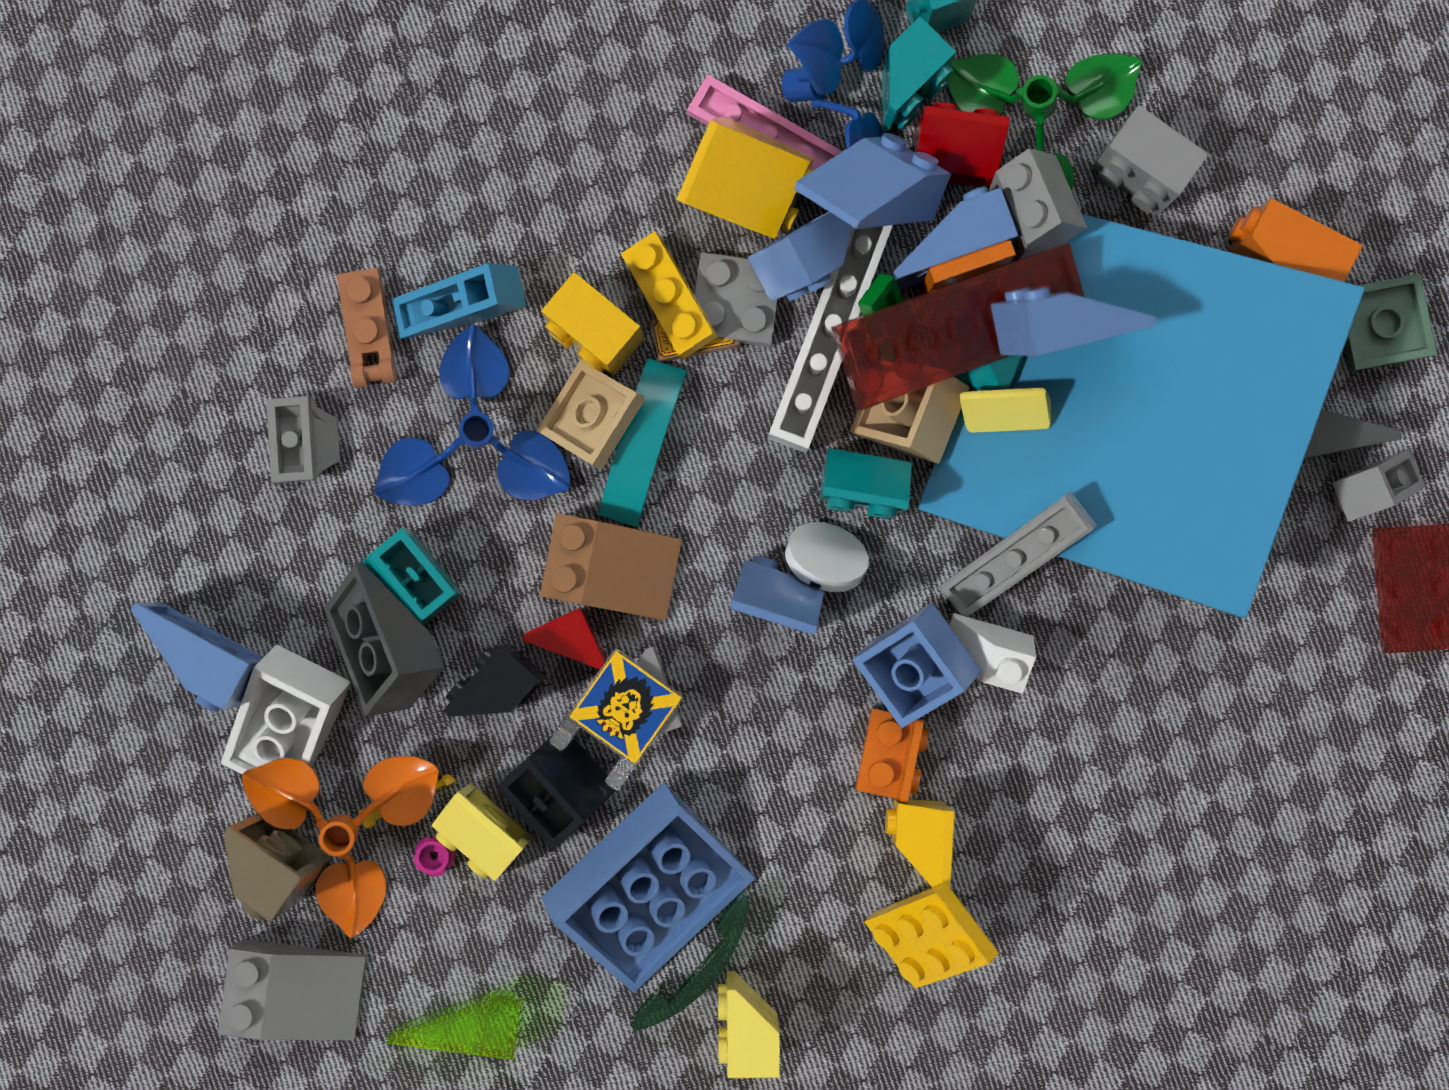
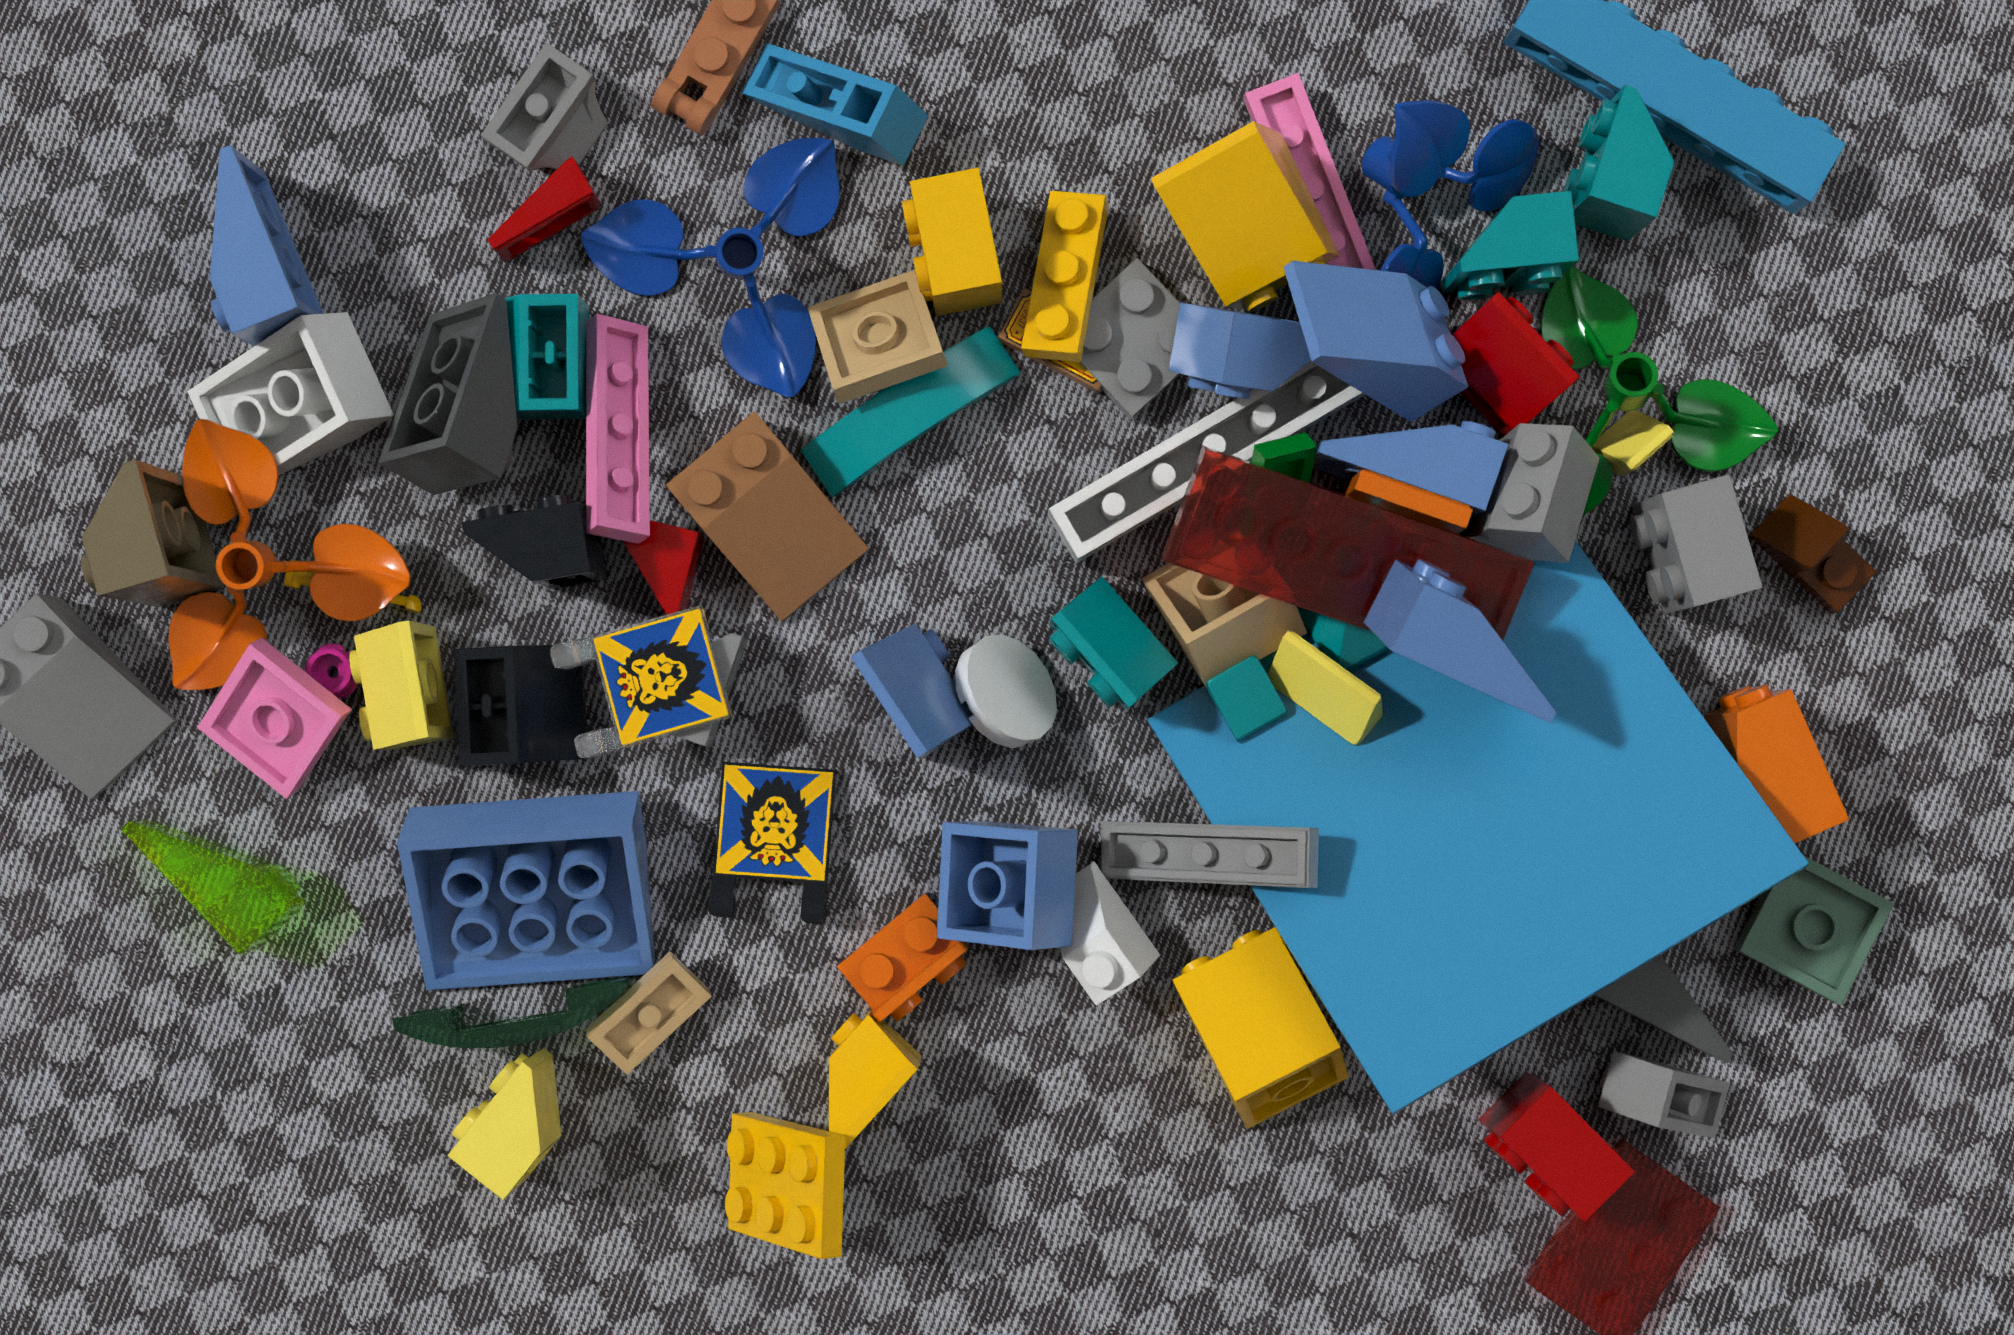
camera: 35 degrees right, 0 degrees up
(346, 488) = (549, 210): none -> red slope
(422, 909) = (274, 718): none -> bright pink plate
(486, 586) = (617, 429): none -> bright pink plate
(756, 741) = (773, 828): none -> flag
(771, 903) = (648, 1013): none -> tan plate
(965, 451) = (1245, 698): none -> teal slope
(1064, 131) = (1632, 441): none -> light yellow slope
(1122, 629) = (1261, 1026): none -> yellow slope
(1214, 112) = (1813, 552): none -> reddish brown slope
(1344, 565) = (1564, 1154): none -> red brick

